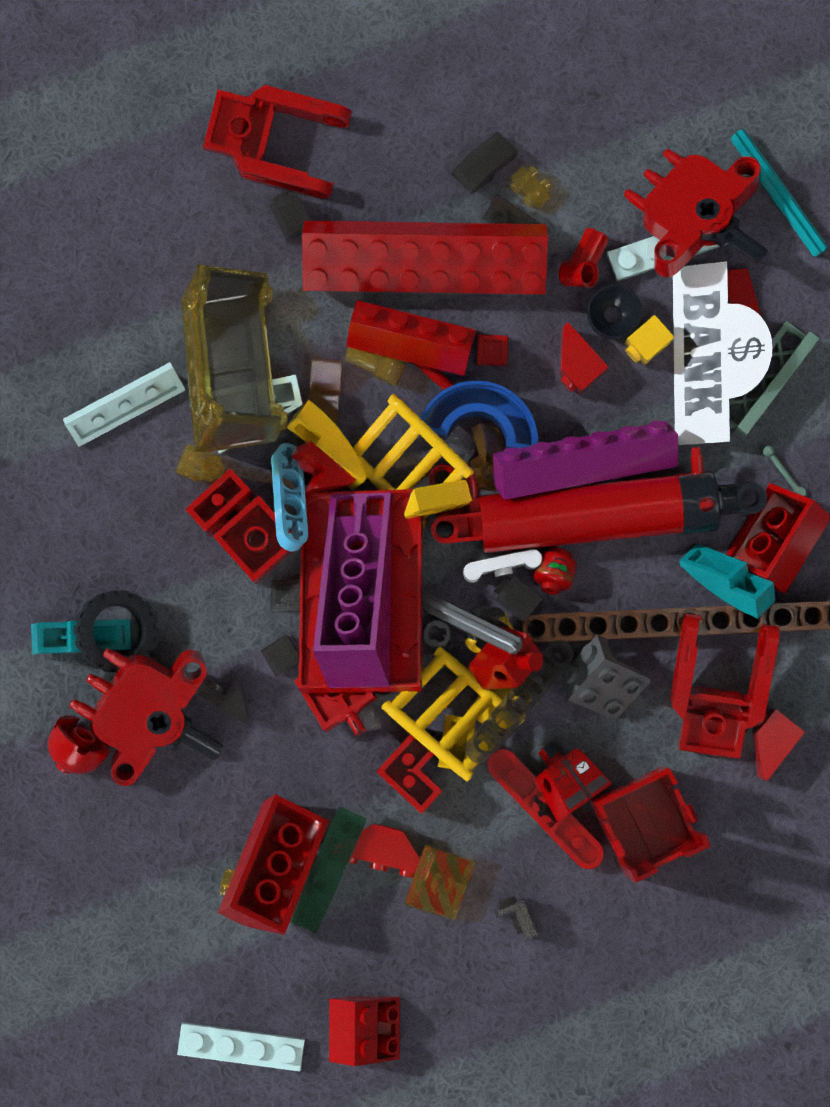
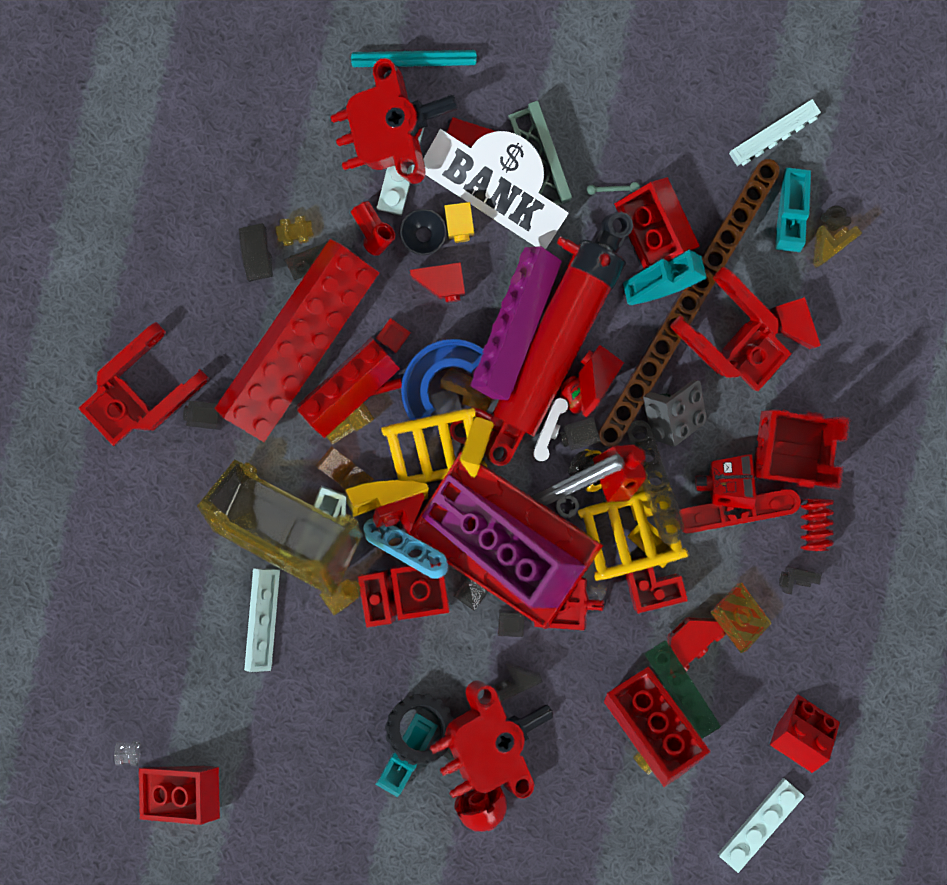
camera: 55 degrees left, 5 degrees up
(585, 898) = (817, 524): none -> red piece
(586, 575) = (596, 376): none -> red slope

